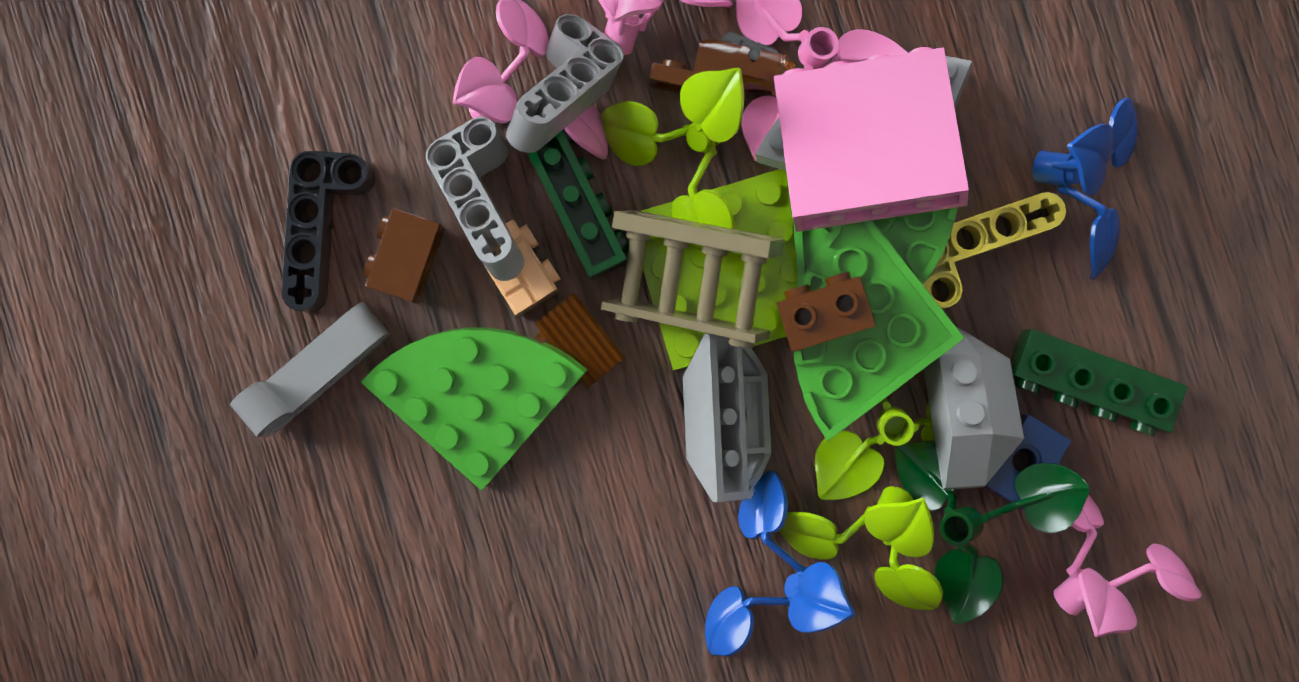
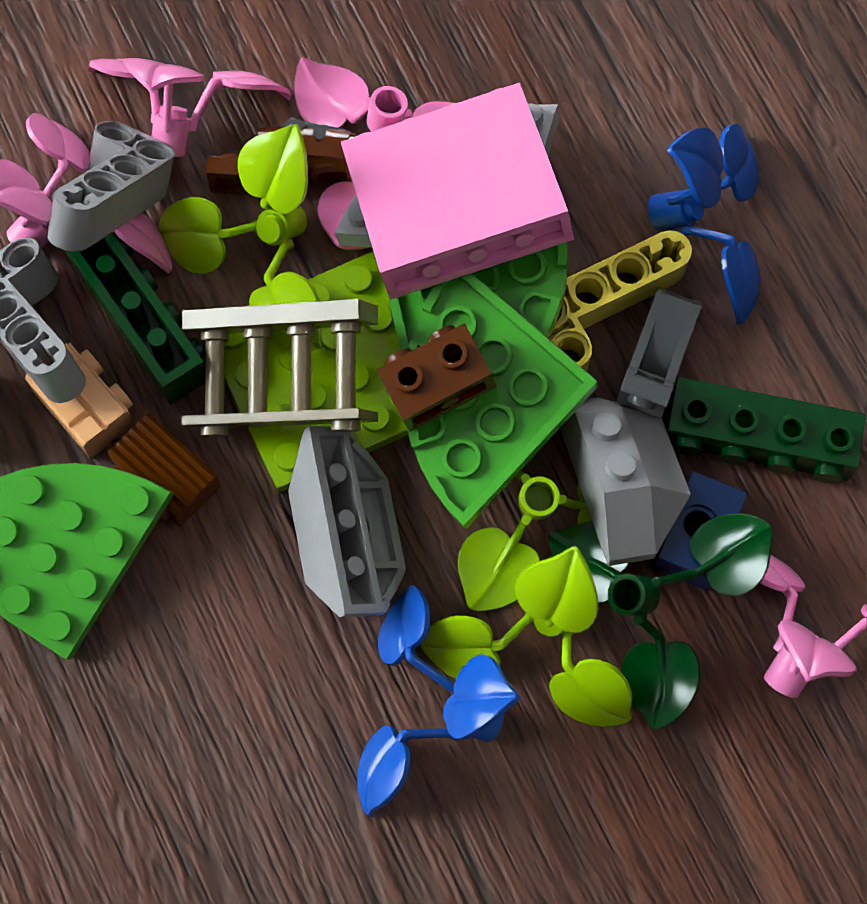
camera: 15 degrees left, 15 degrees down
(1017, 301) = (659, 353): none -> dark grey arch

